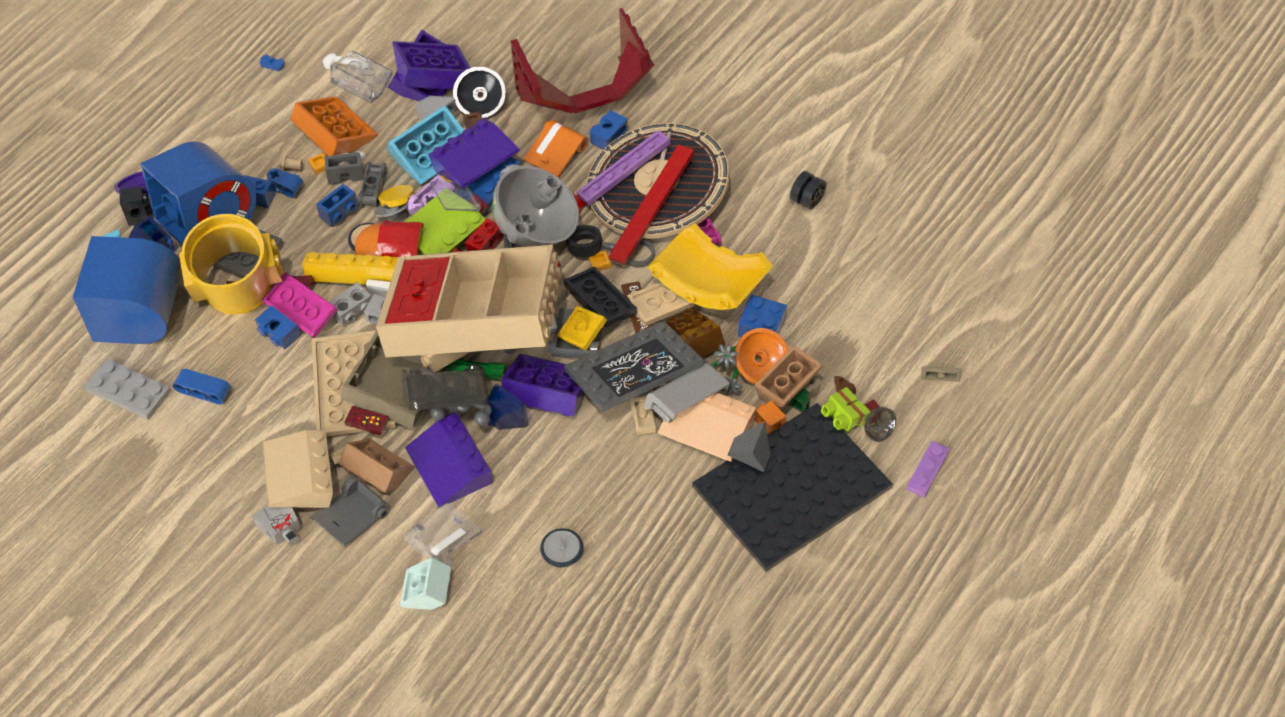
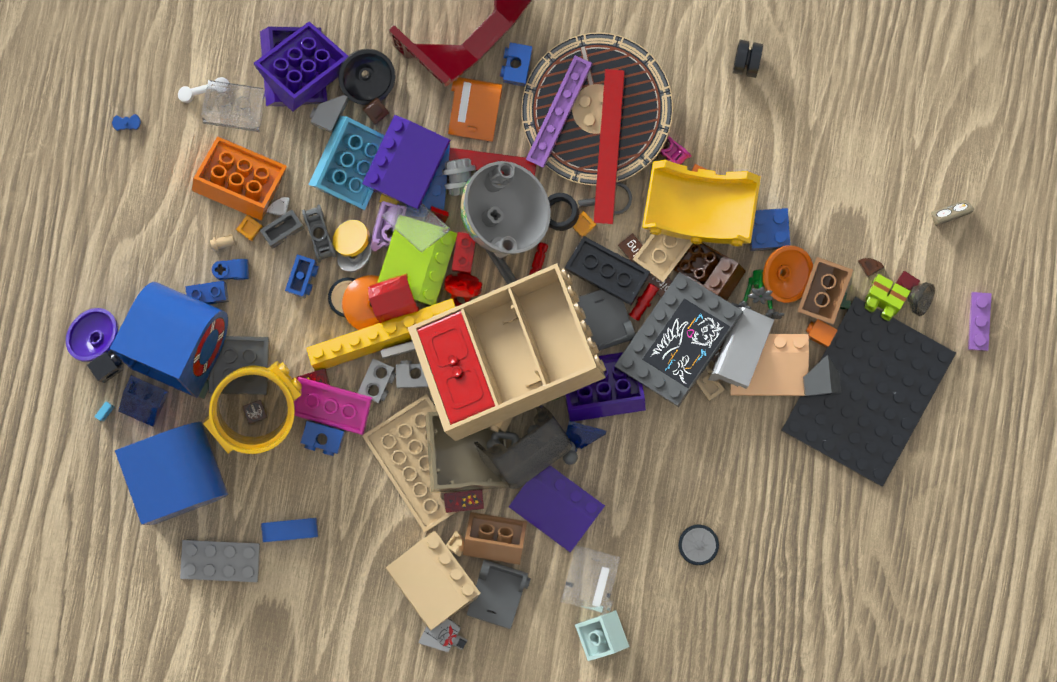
camera: 25 degrees left, 30 degrees up
(581, 328) = (609, 316): yellow tile -> none
(620, 332) = (644, 301): none -> red pin

